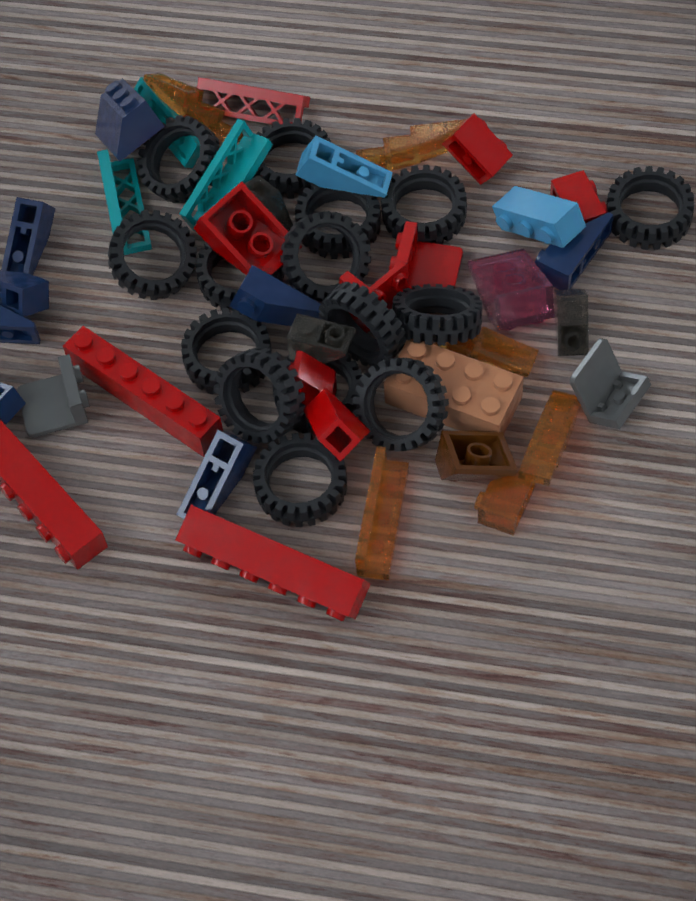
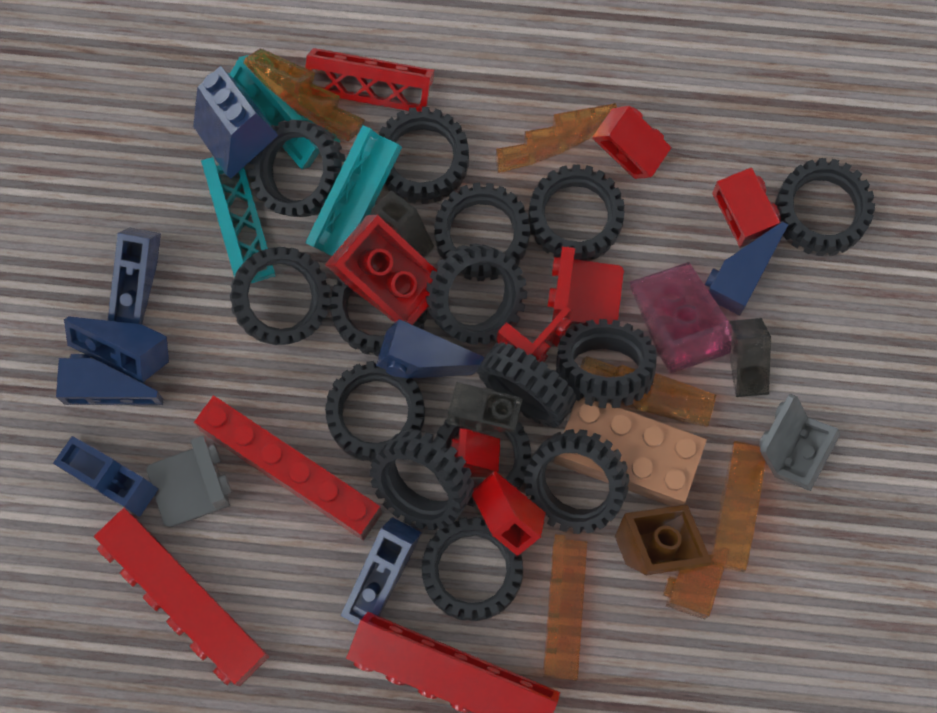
camera: 10 degrees left, 15 degrees up
(341, 170) = (485, 181): dark azure slope -> none
(539, 216) = (707, 231): dark azure brick -> none

